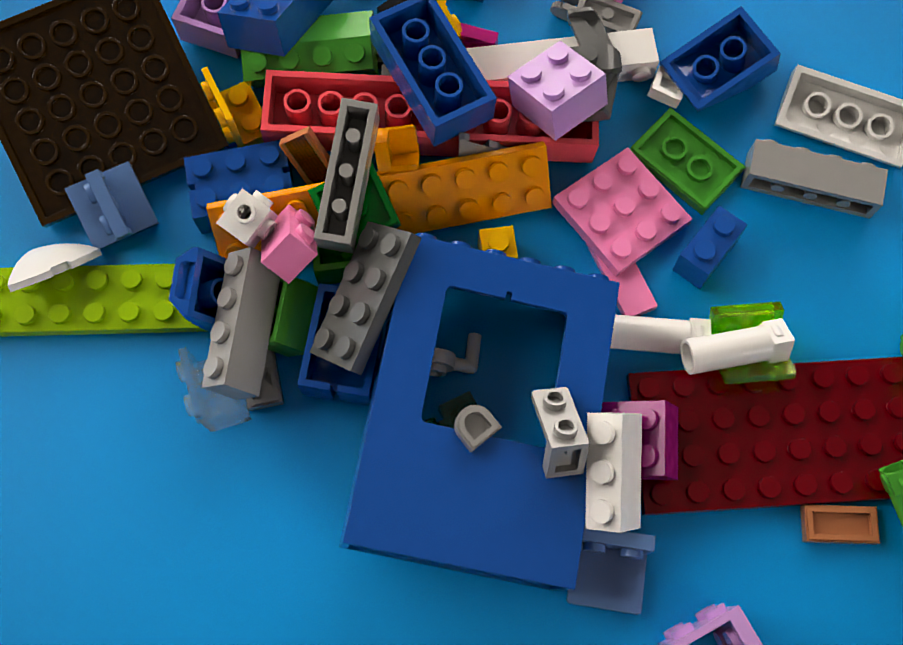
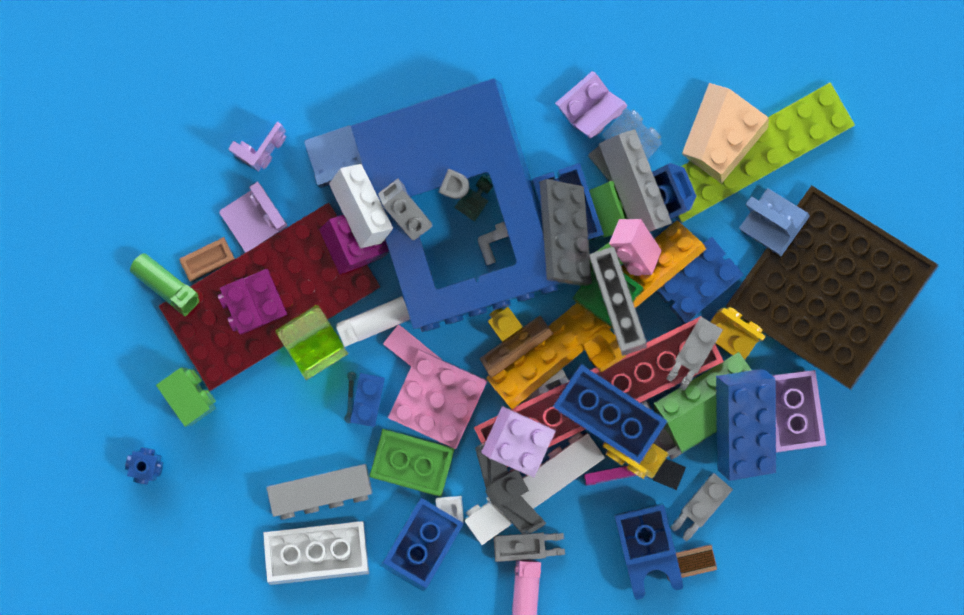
camera: 150 degrees right, 15 degrees up
(49, 261) = (787, 163): white brick -> none
(99, 336) = (723, 132): none -> light nougat wedge
(240, 453) = (590, 105): none -> lavender bracket
(248, 217) = (667, 246): white brick -> none
(292, 92) = (695, 350): none -> light grey hinge
(306, 155) = (660, 318): tile -> none
(526, 216) = (516, 346): none -> medium nougat tile
(713, 289) = (351, 376): none -> clear smoke hinge
(755, 545) = (253, 218): none -> lavender bracket
(765, 342) = (320, 330): white piece -> none
(809, 432) = (252, 302): none -> magenta plate

